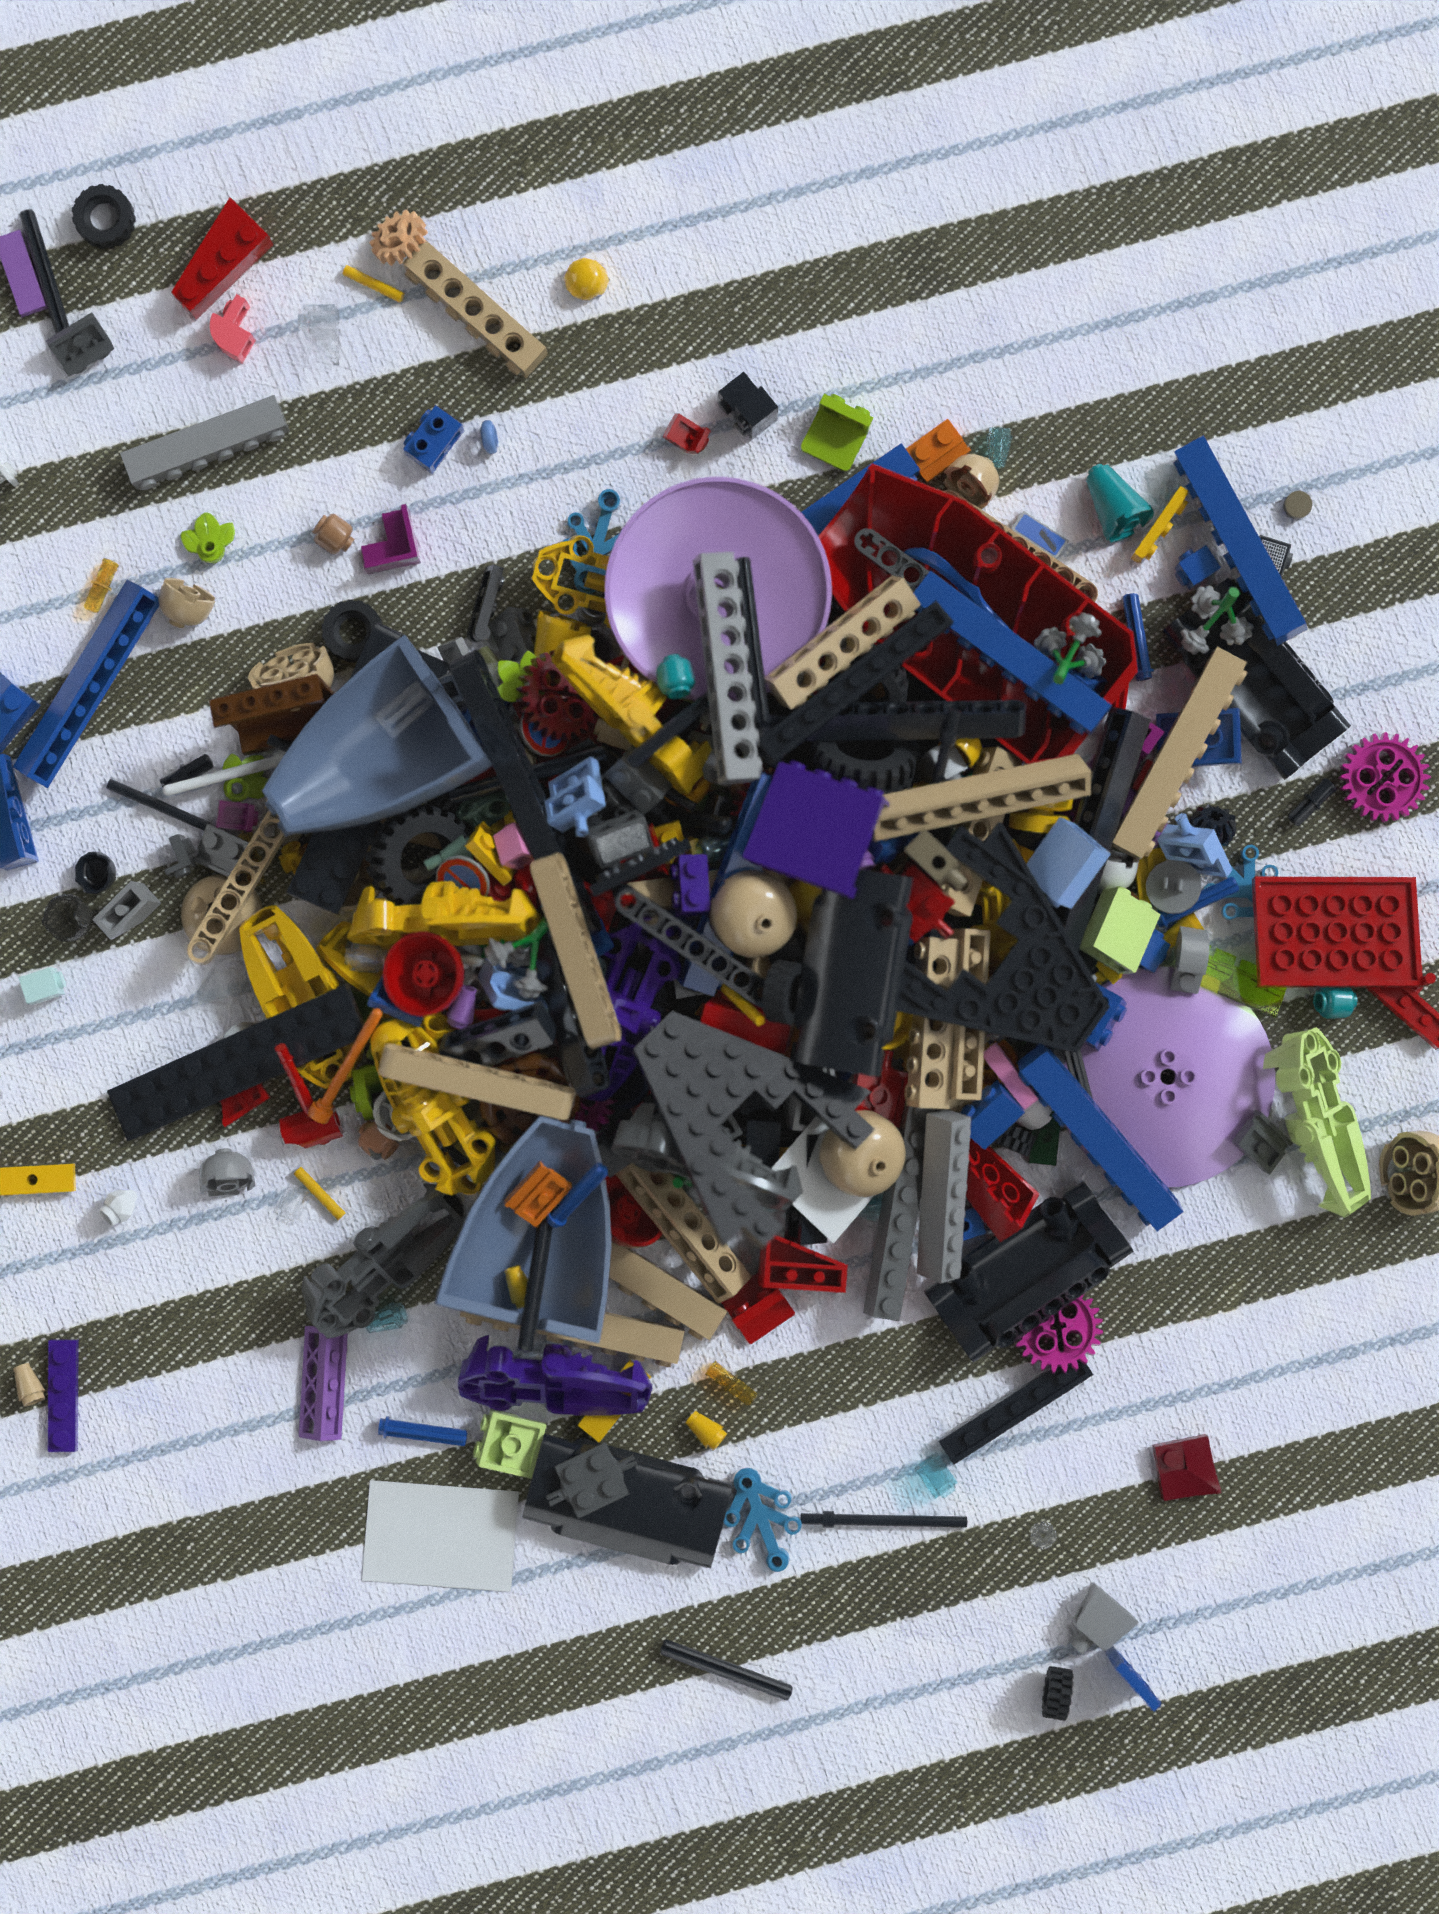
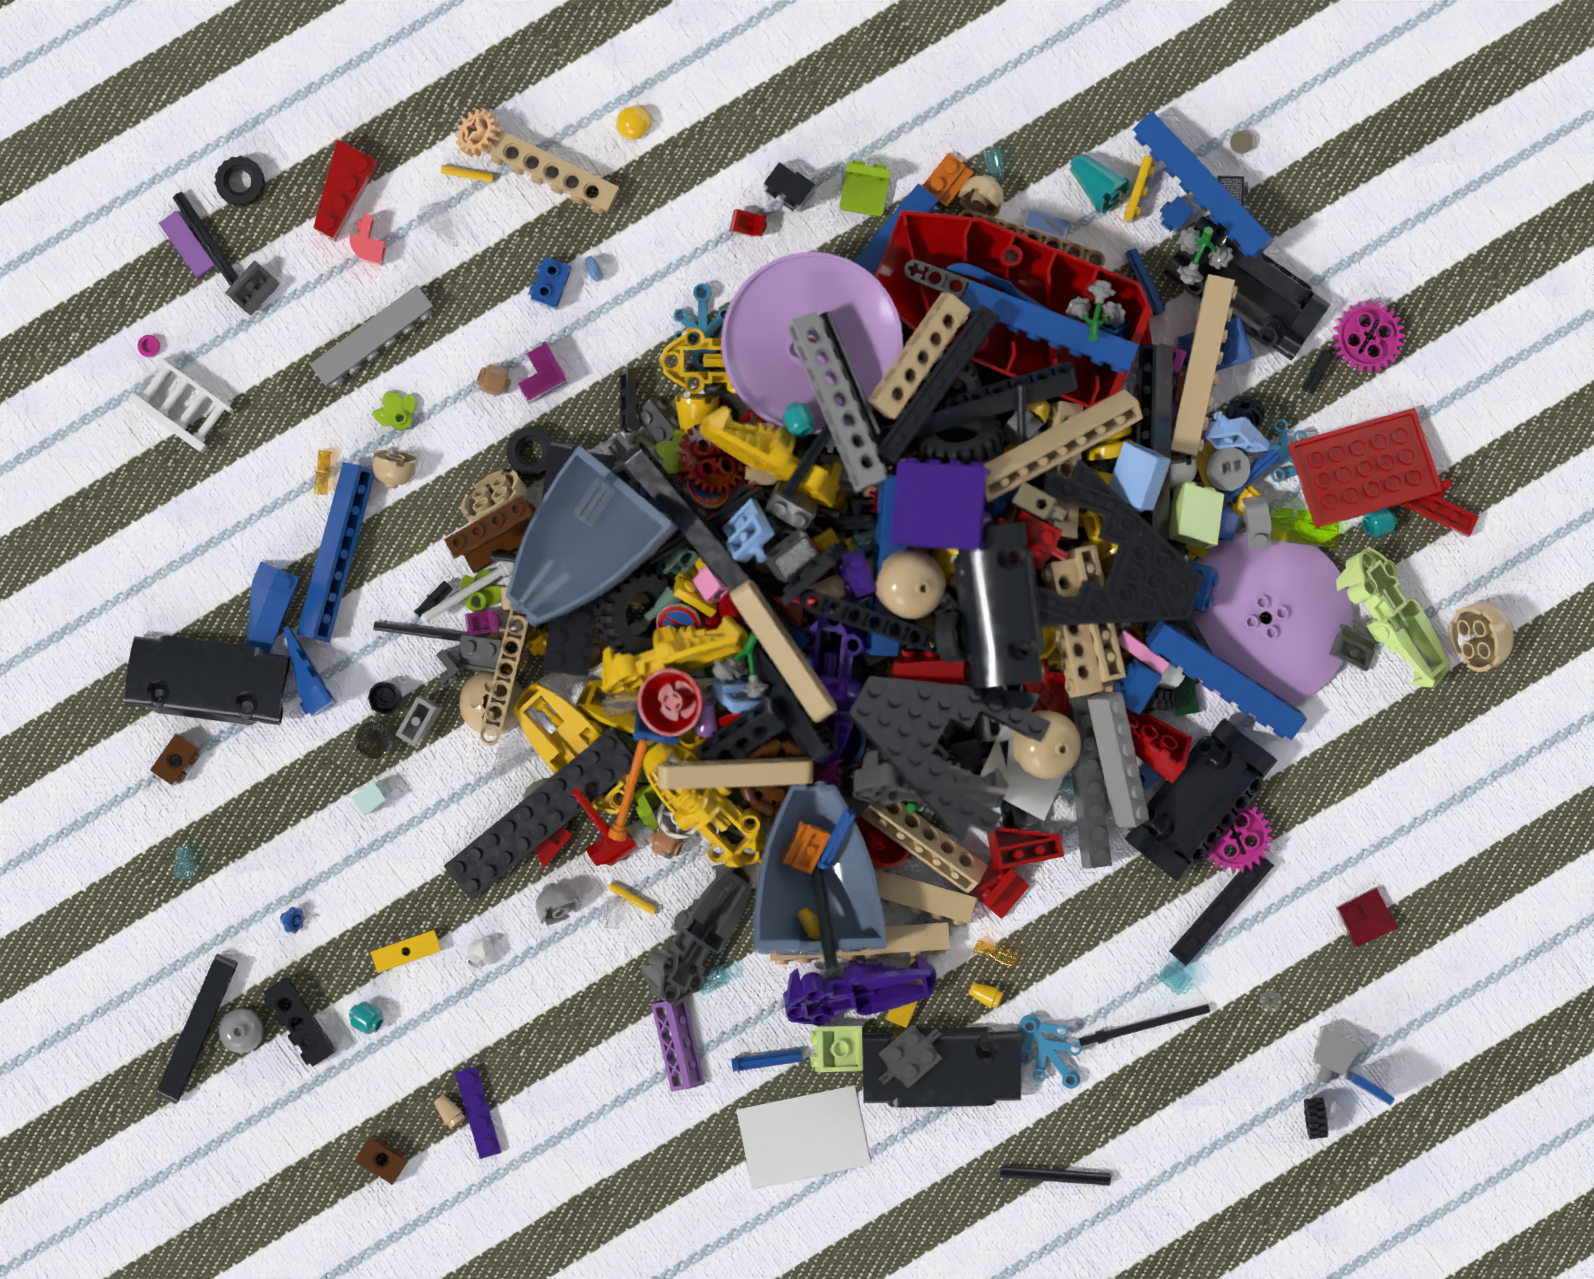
camera: 20 degrees left, 0 degrees up
(743, 1005) = (928, 658): yellow piece -> none

